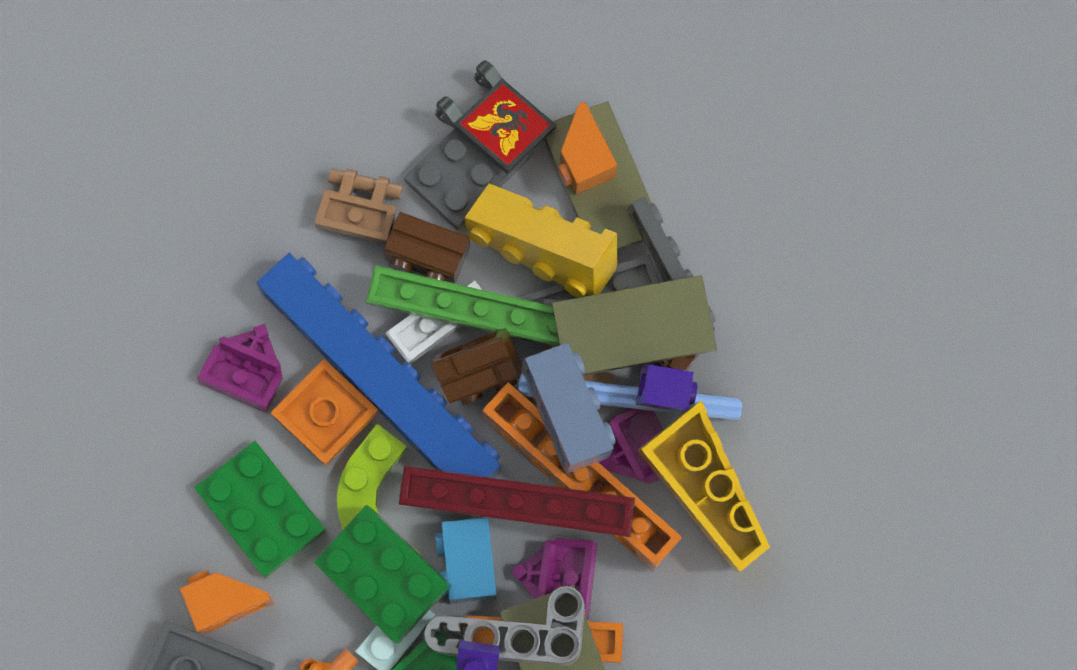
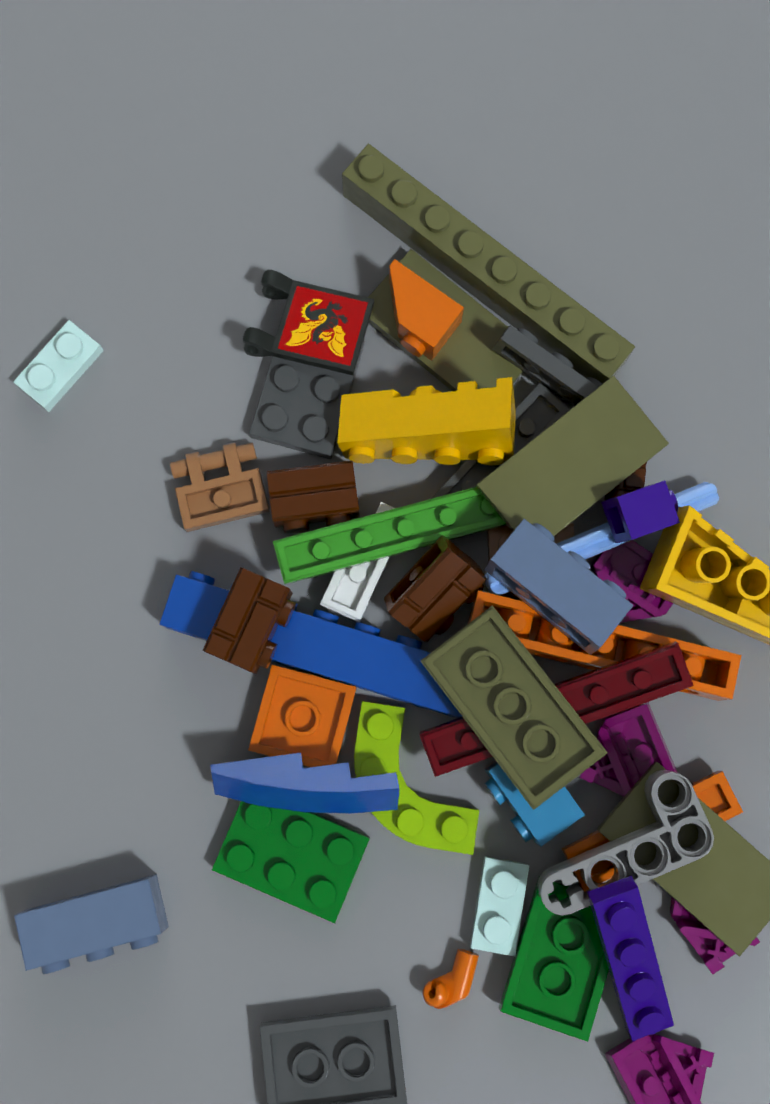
camera: 25 degrees left, 5 degrees up
(84, 478) = (91, 924): none -> sand blue brick
(221, 600) = (305, 973): orange slope -> none
(244, 368) = (194, 717): magenta slope -> none
(285, 452) = (287, 785): none -> blue slope
(288, 51) = (58, 365): none -> light aqua plate
(324, 314) = (249, 621): none -> reddish brown brick
(382, 574) = (457, 857): green plate -> none
(484, 480) = (513, 707): none -> olive tile
(656, 145) = (483, 265): none -> olive brick

